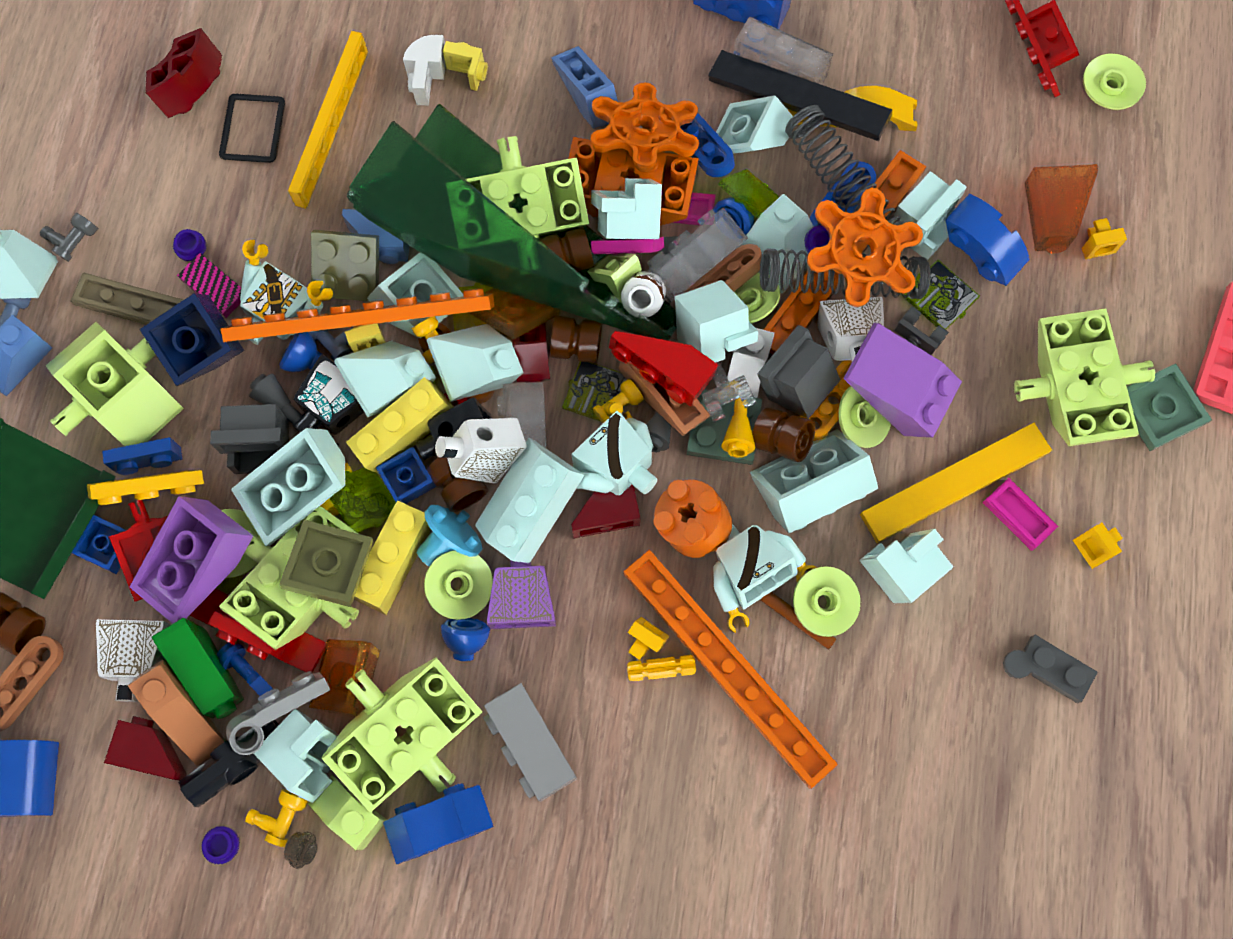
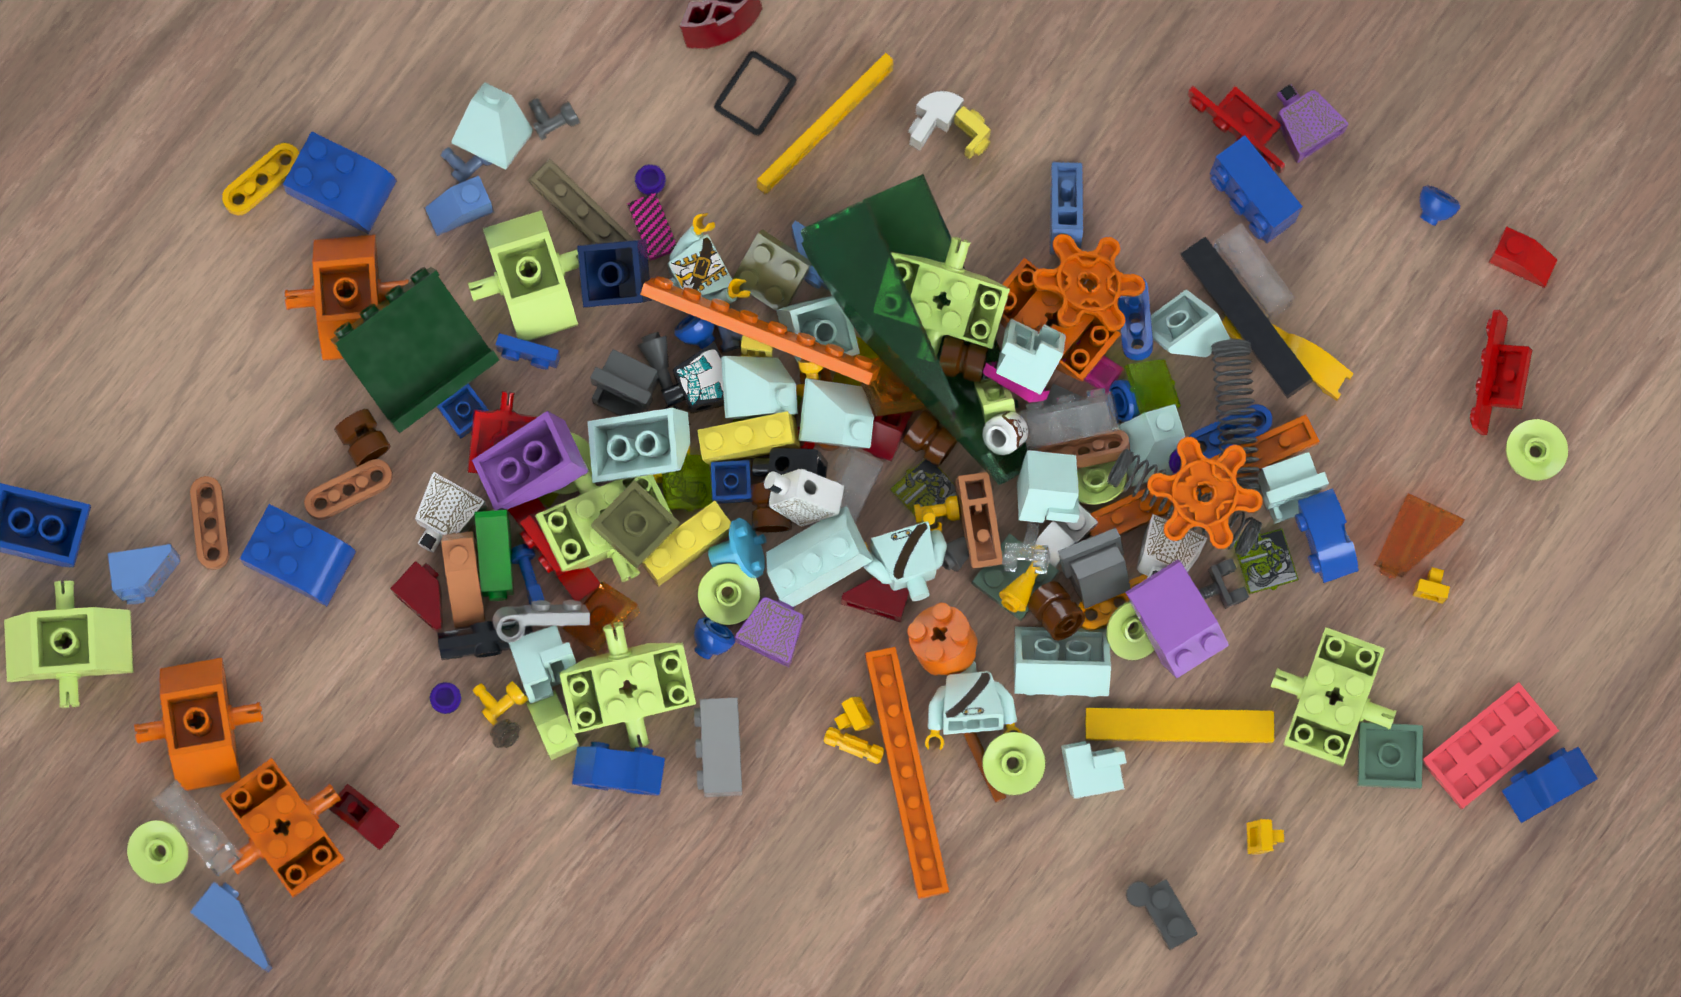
camera: 25 degrees right, 5 degrees up
(145, 487) = (522, 383): yellow plate -> none
(670, 364) = (993, 508): red slope -> none
(1020, 514) = (1216, 779): dark pink tile -> none

